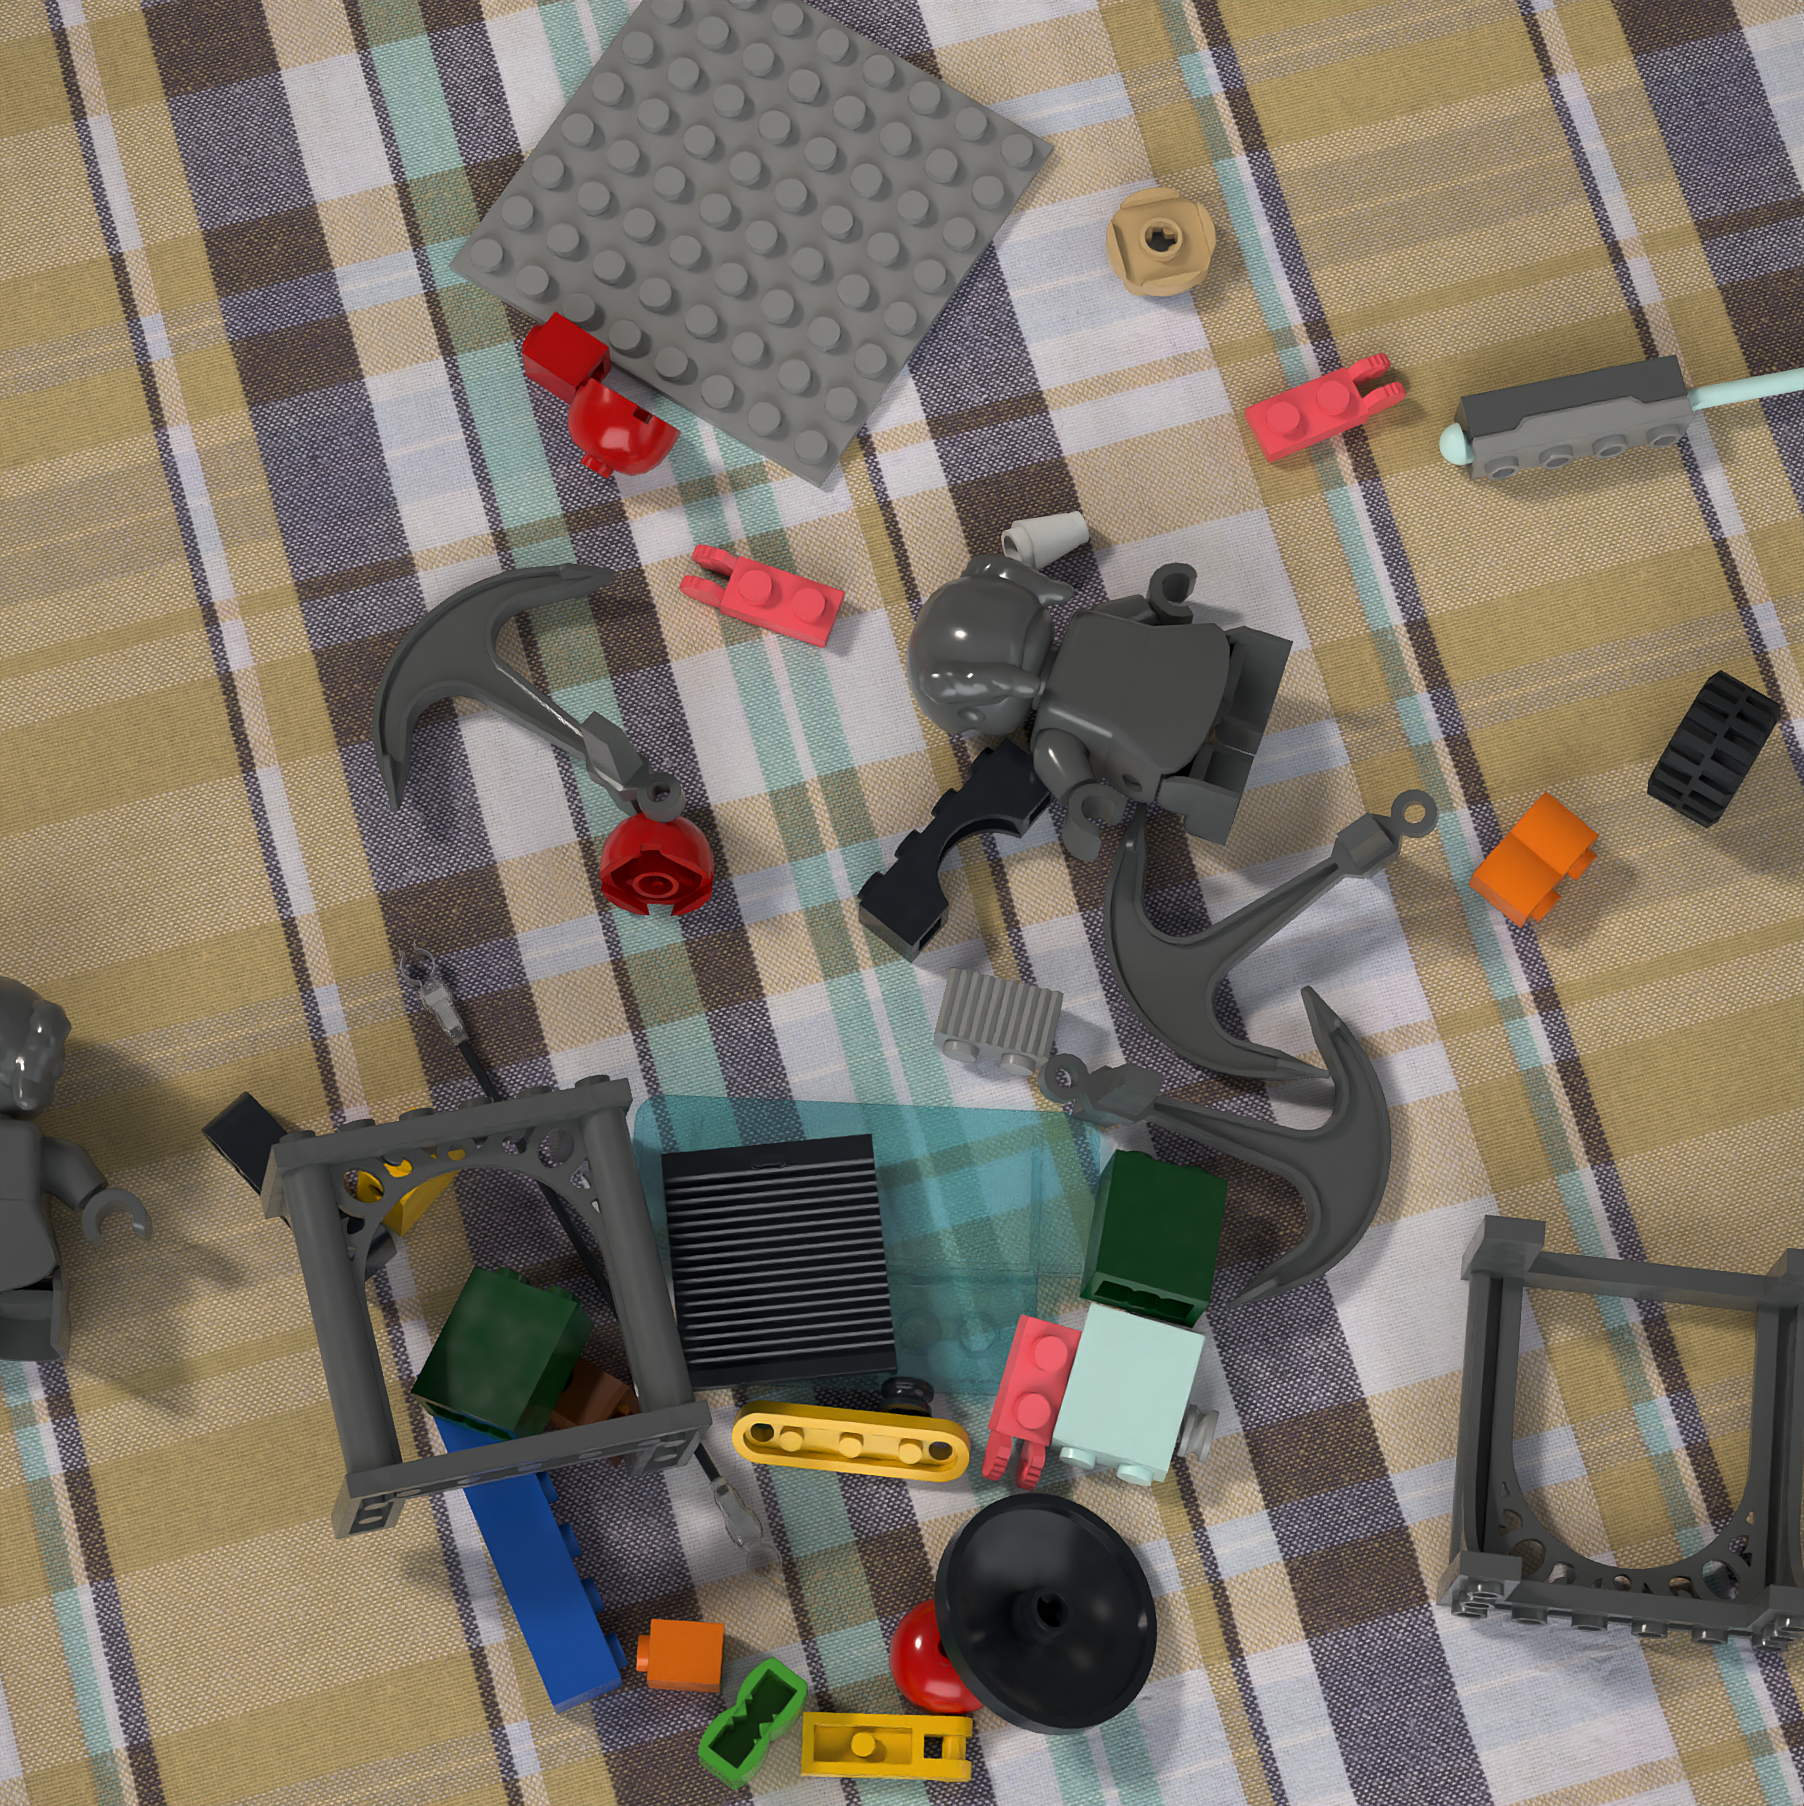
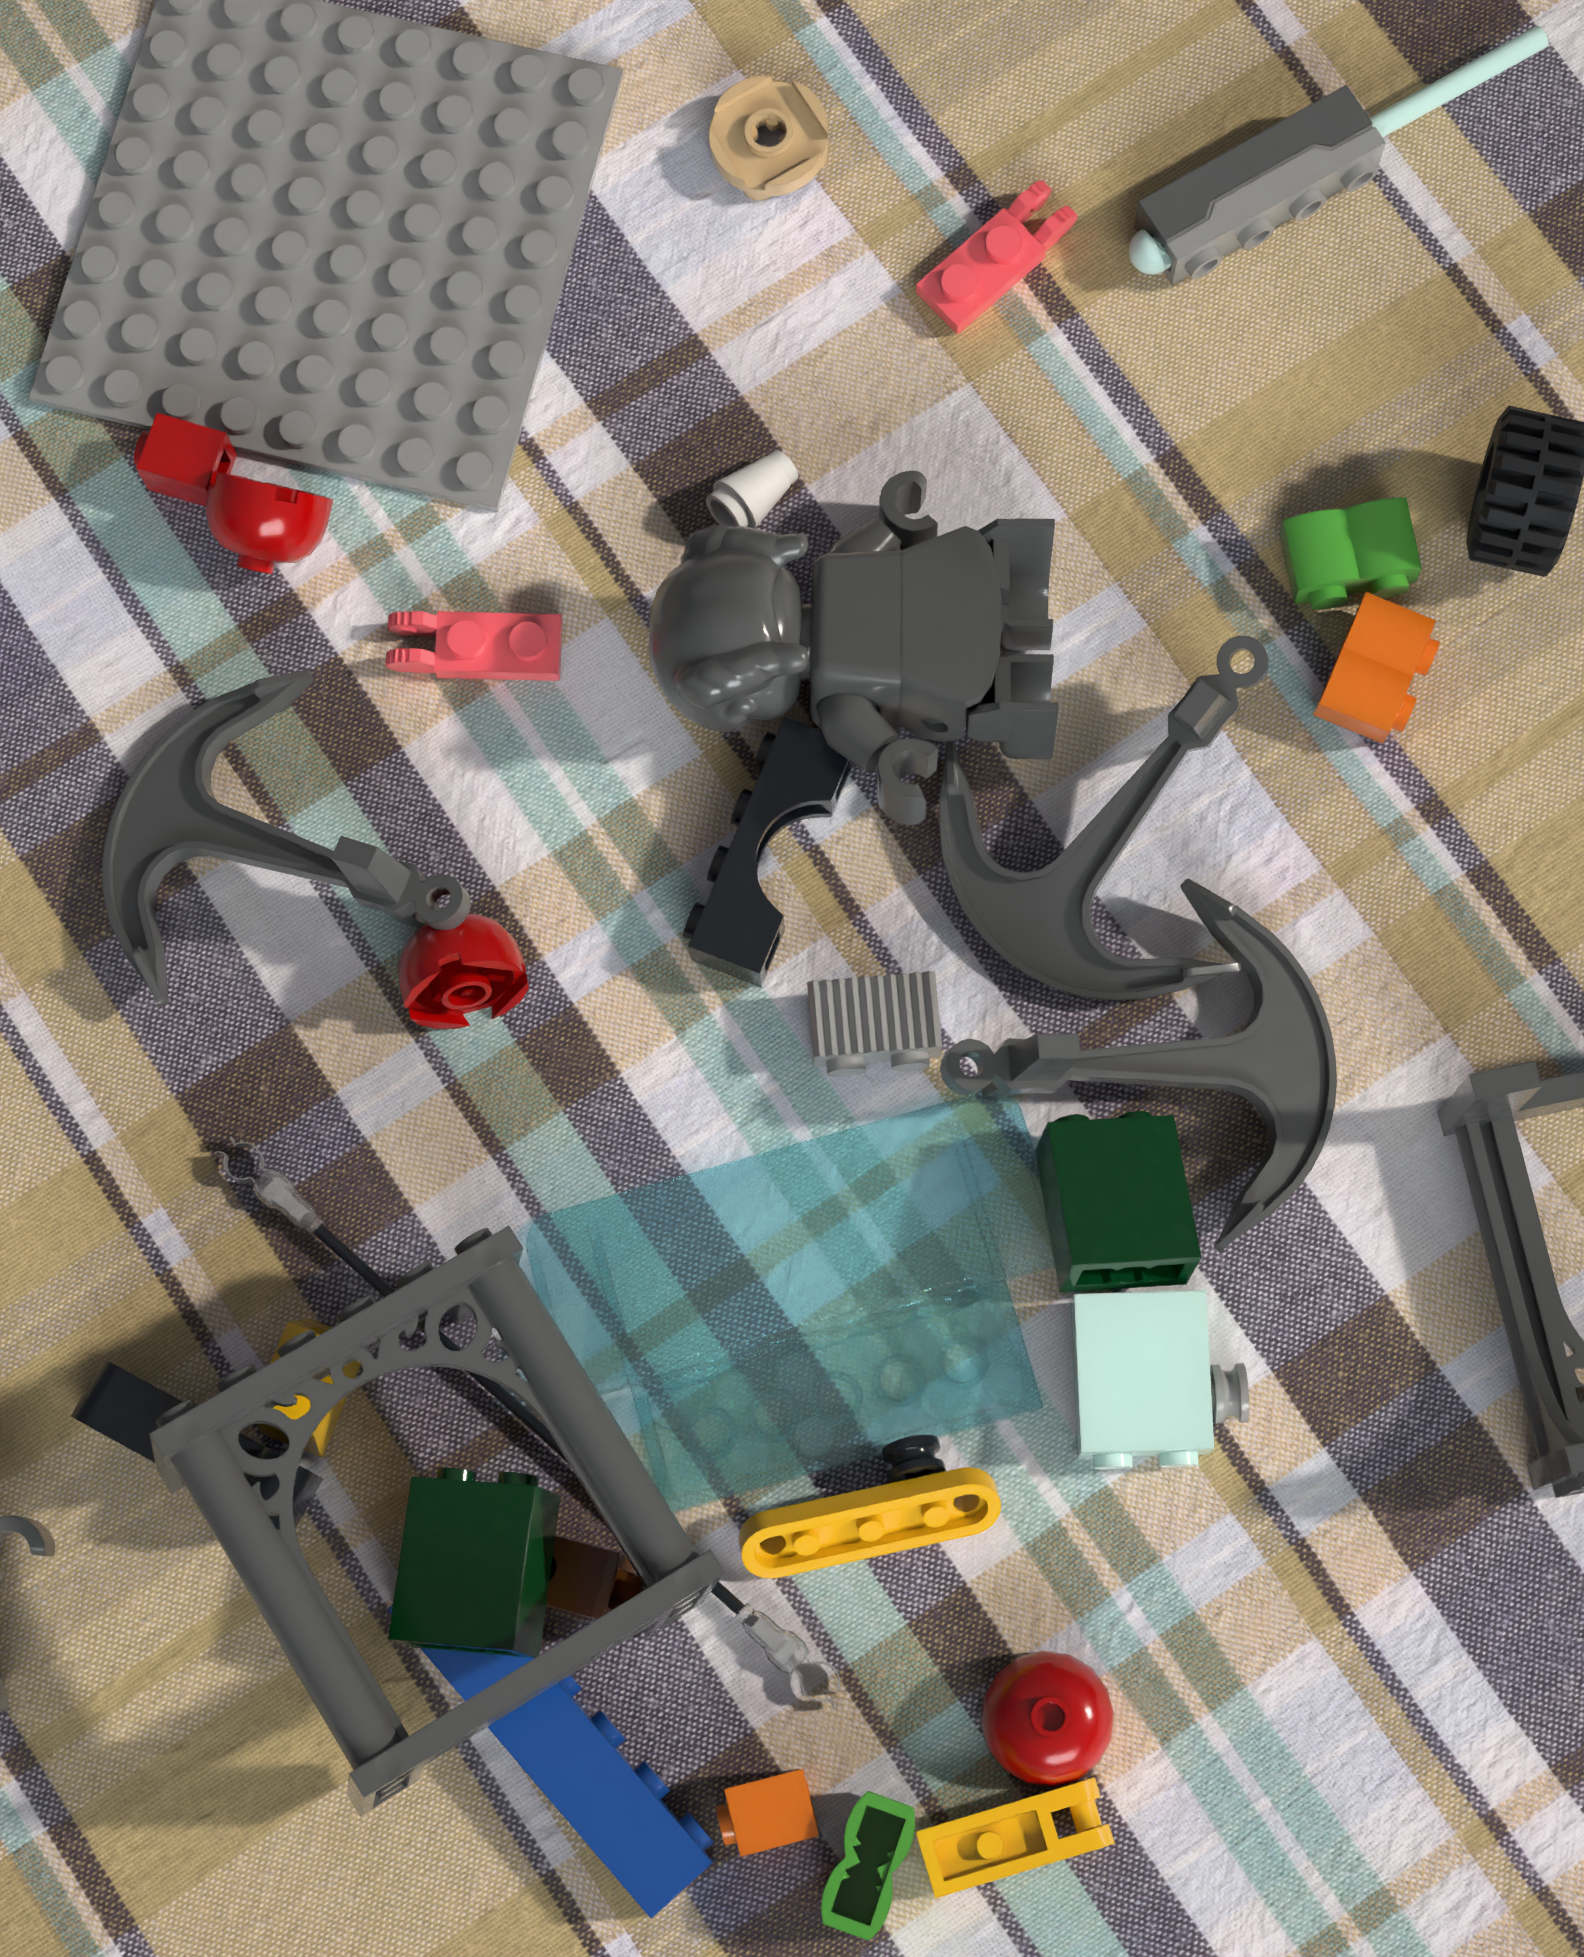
camera: 10 degrees left, 5 degrees up
(778, 1264) = (731, 1359): black door -> none
(1030, 1398) = (1042, 1415): coral hinge -> none
(1045, 1614) = (1137, 1646): black dish -> none
(1546, 754) = (1350, 552): none -> bright green brick

